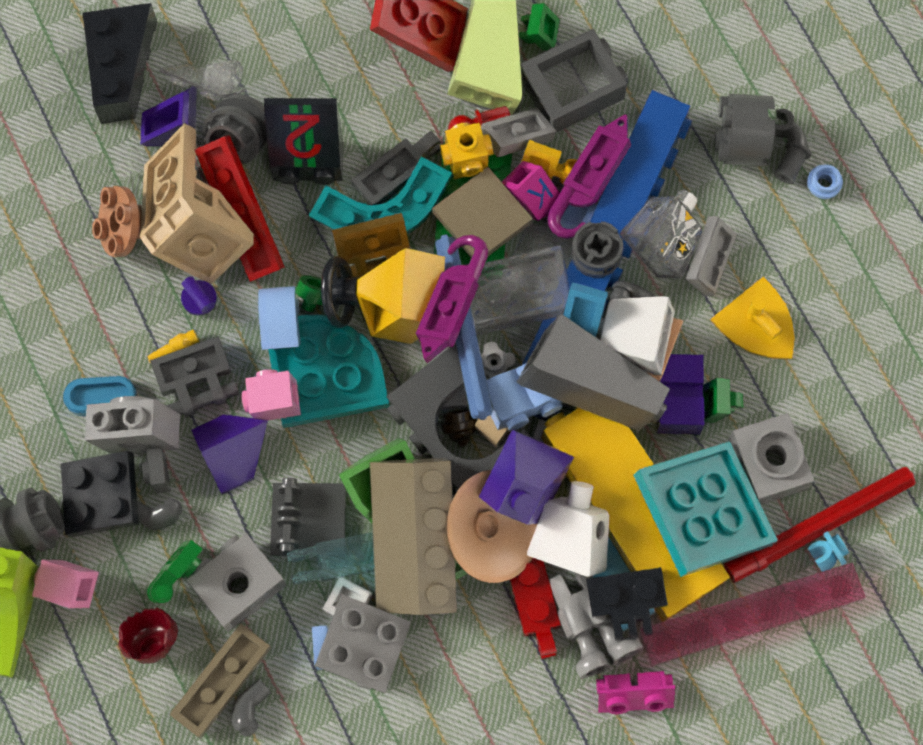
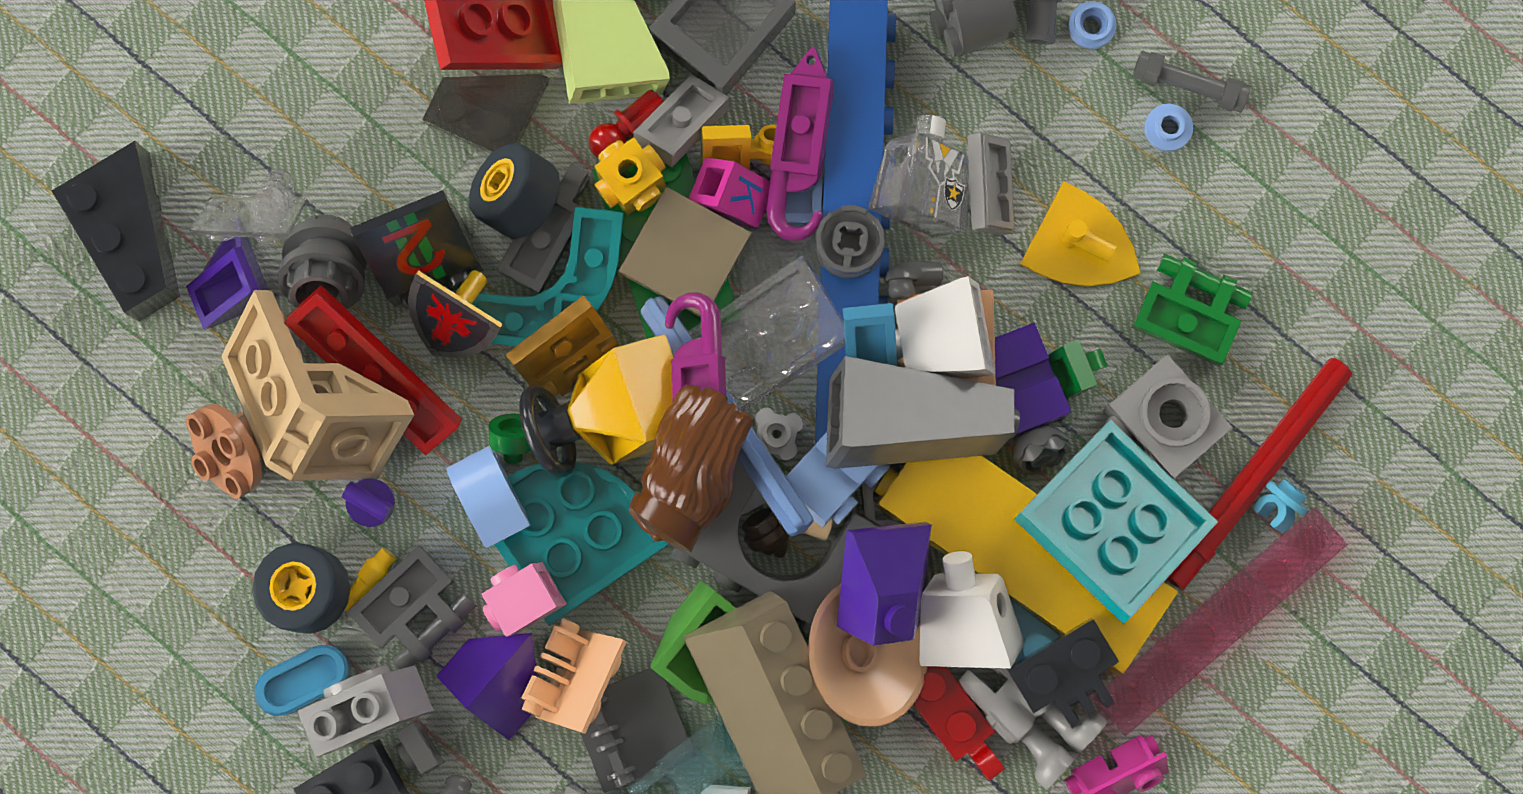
camera: 20 degrees left, 10 degrees up
(127, 332) = (283, 586): none -> black wheel
(279, 473) = (579, 680): none -> light nougat hinge
(304, 195) = (448, 319): none -> shield
(385, 132) = (514, 190): none -> black wheel
(390, 79) = (486, 108): none -> clear smoke wing
(423, 345) = (690, 466): none -> reddish brown hair
(671, 443) = (1039, 448): none -> dark grey plate
(811, 401) = (1187, 322): none -> green plate
(847, 277) = (1162, 140): none -> light blue plate
(903, 263) = (1230, 94): none -> dark grey bar

